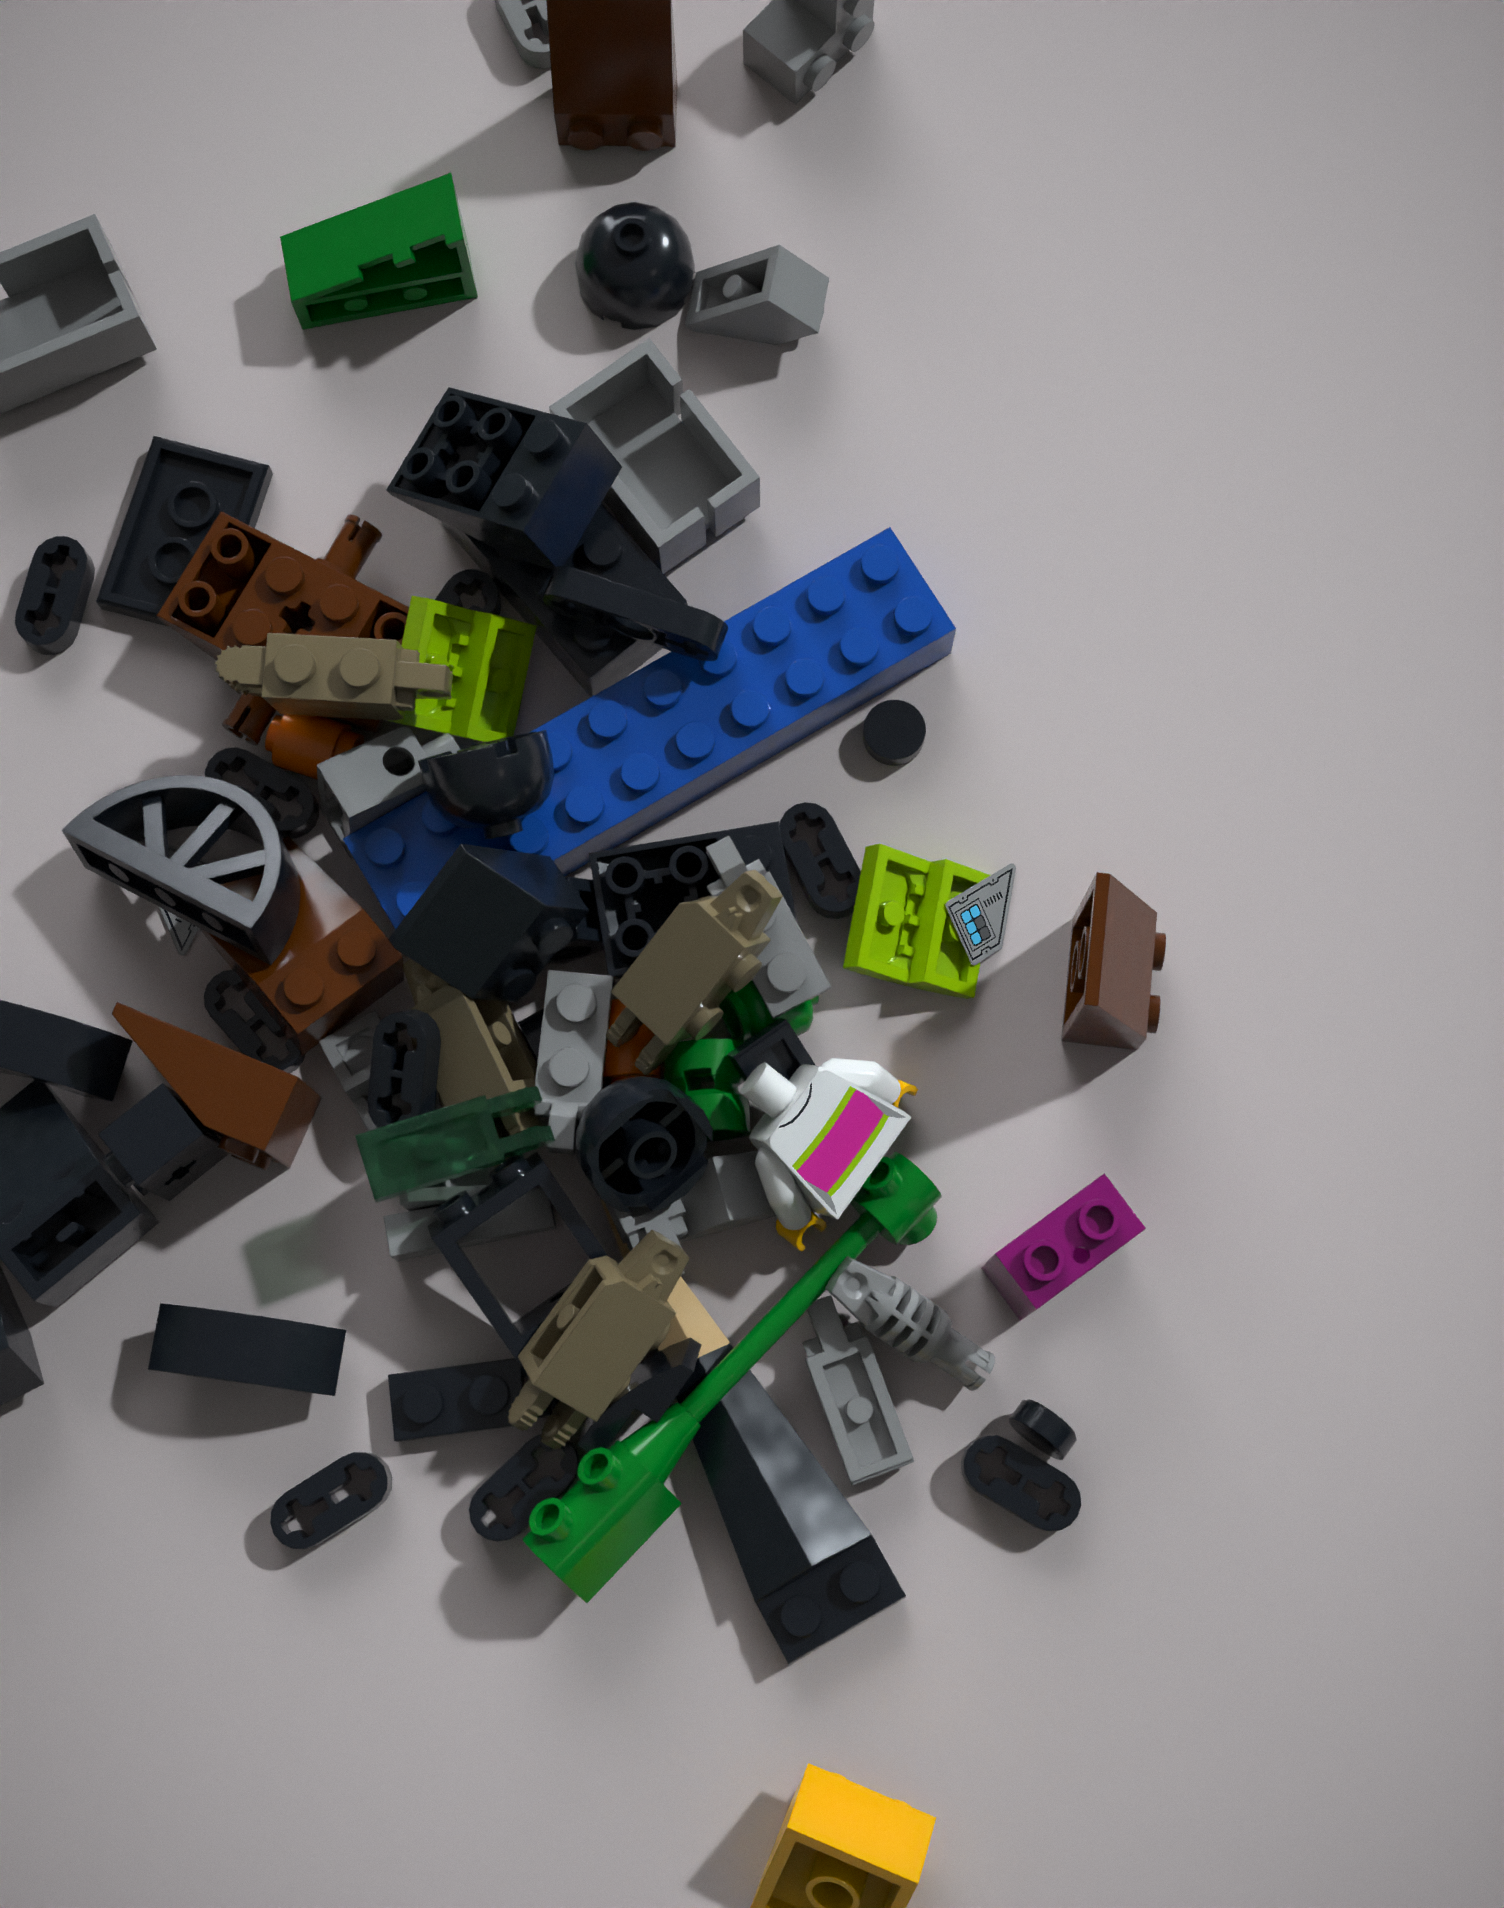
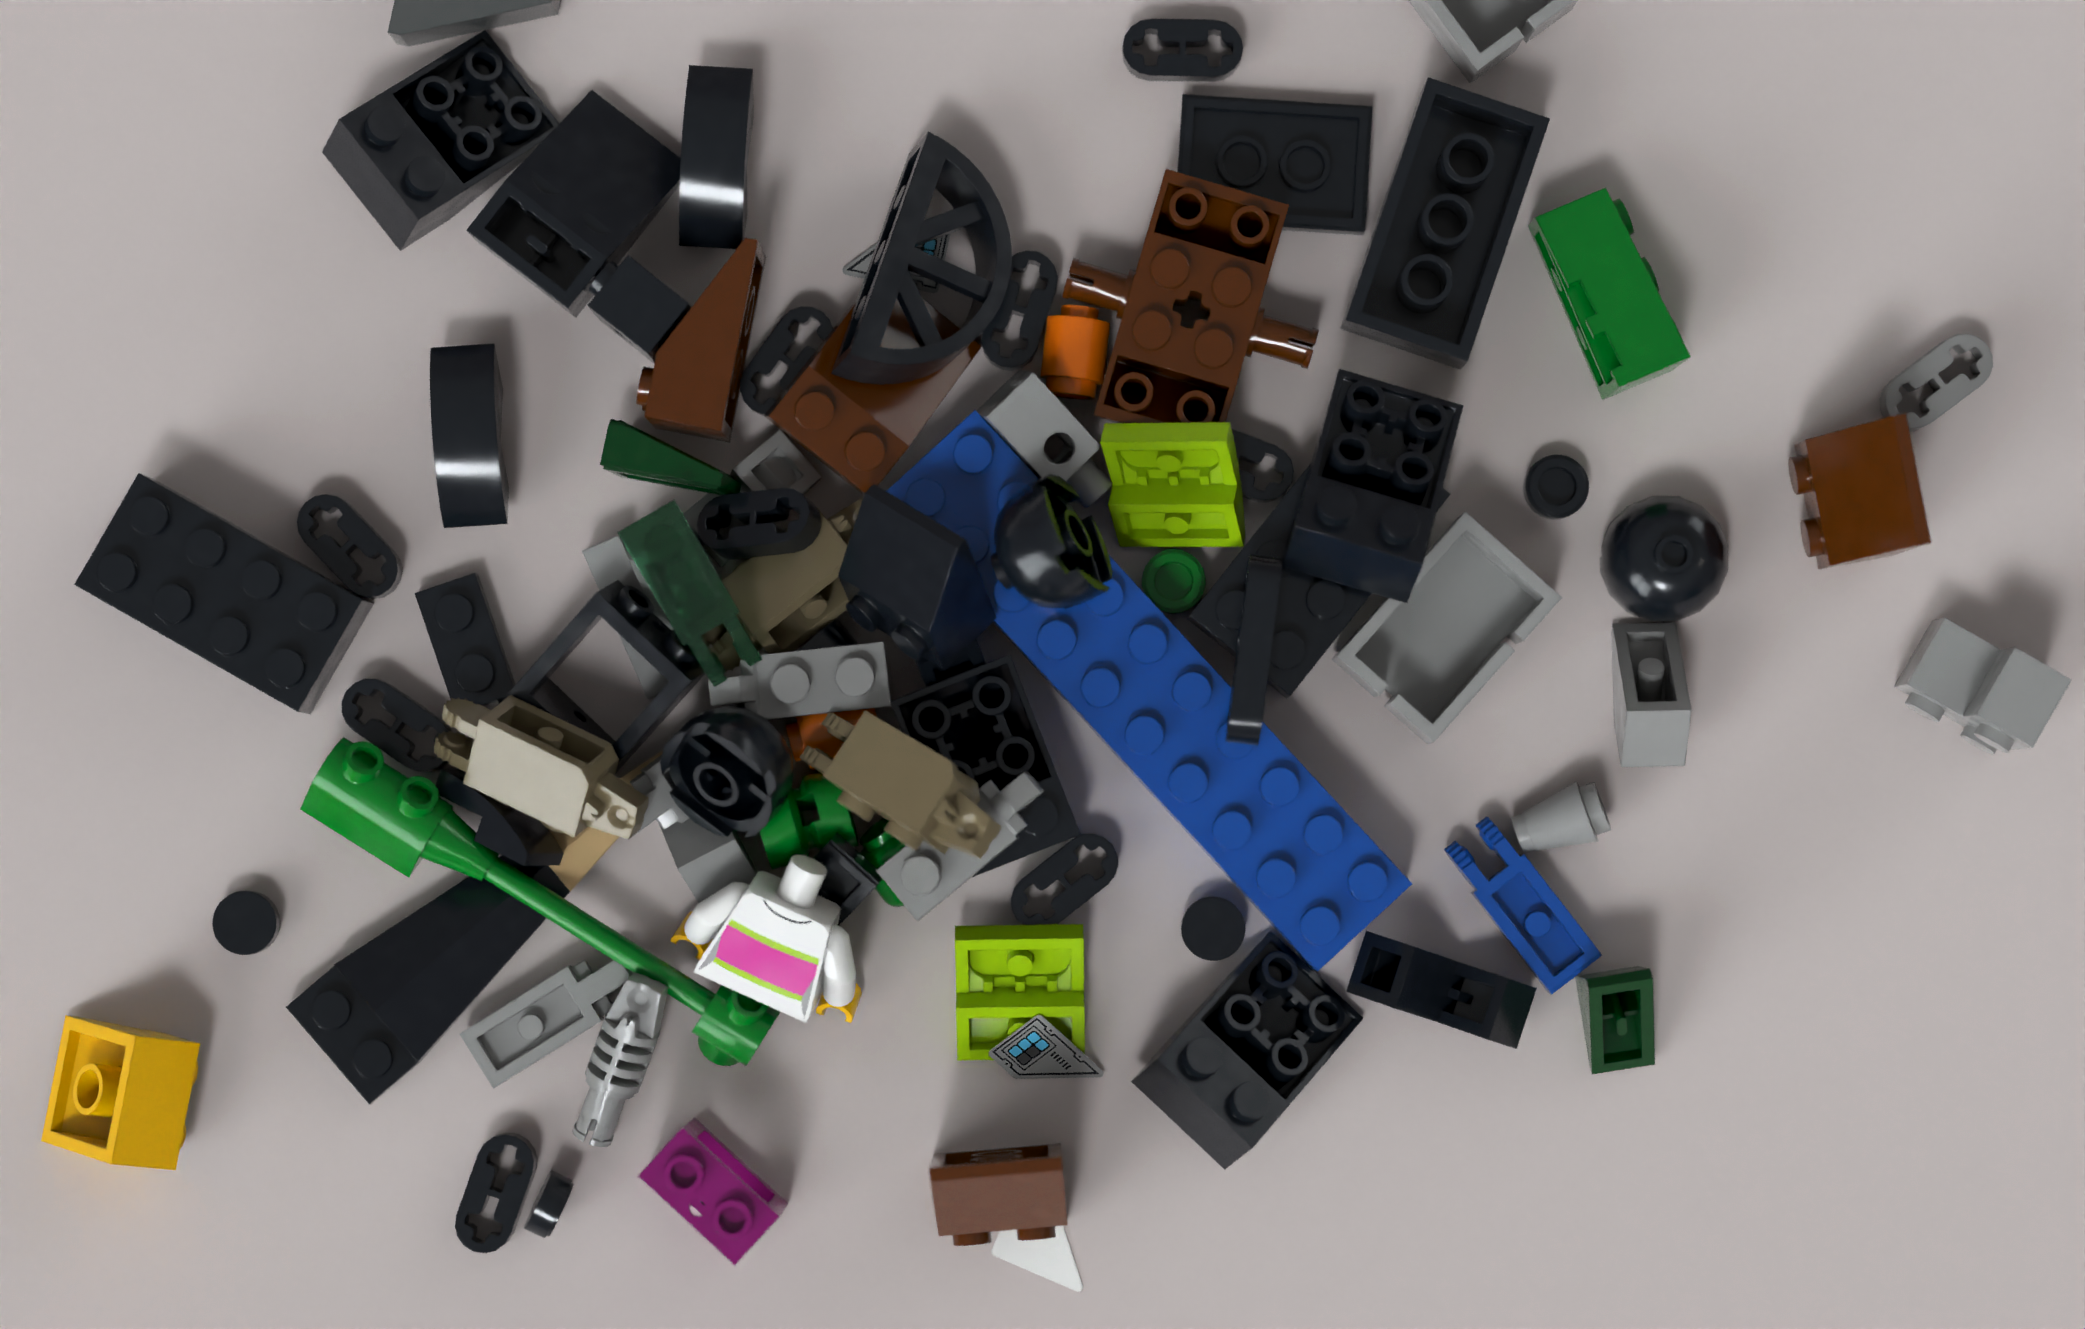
camera: 75 degrees right, 10 degrees up
(277, 384) = (1445, 223): none -> black brick
(319, 1166) = (645, 458): none -> dark green slope
(334, 676) = (1123, 369): dark tan hinge -> none
(344, 1641) = (224, 594): none -> black brick
(547, 349) = (1556, 487): none -> black tile
(551, 696) = (1173, 581): none -> green tile
(692, 1690) = (246, 922): none -> black tile
(856, 397) = (1563, 819): none -> light grey cone
(932, 447) = (1527, 911): none -> blue hinge
(995, 534) = (1441, 989): none -> black brick
(1020, 722) = (1247, 1051): none -> black slope
(1048, 384) = (1617, 1018): none -> dark green slope
(1182, 954) = (1044, 1257): none -> white sticker

